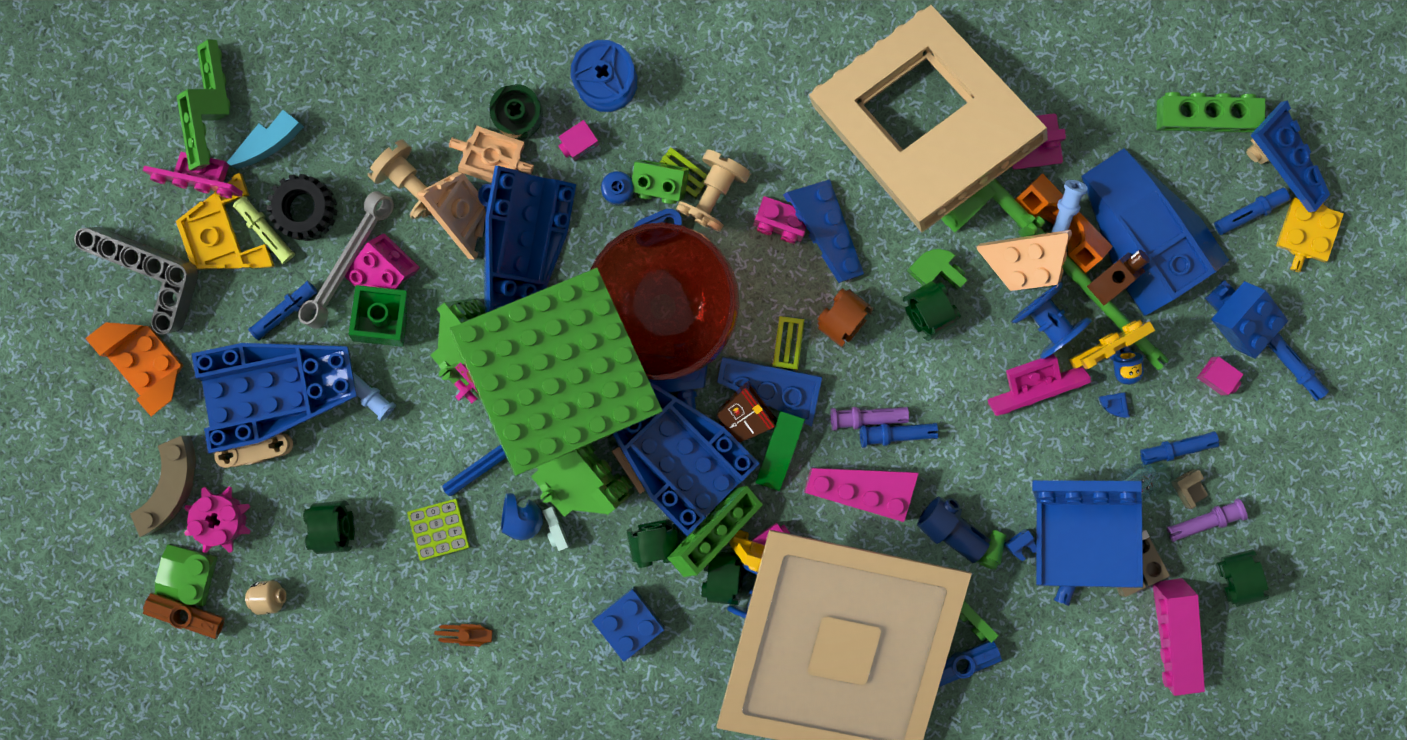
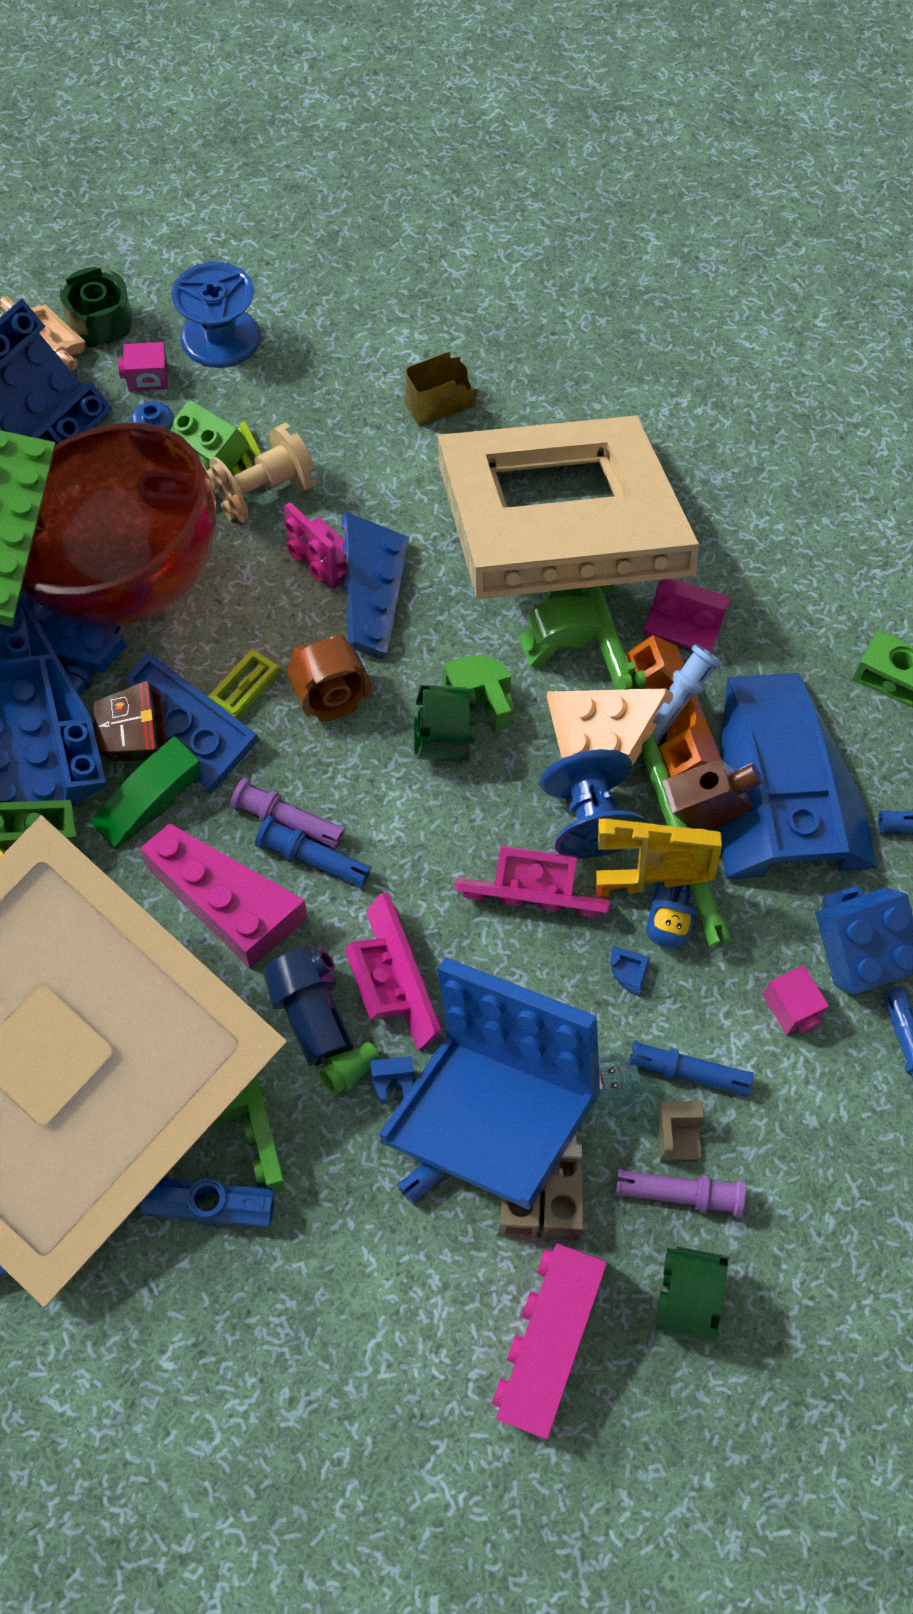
camera: 25 degrees right, 25 degrees down
(782, 77) = (433, 390): none -> pearl gold piece
(984, 484) = (390, 976): none -> dark pink bracket

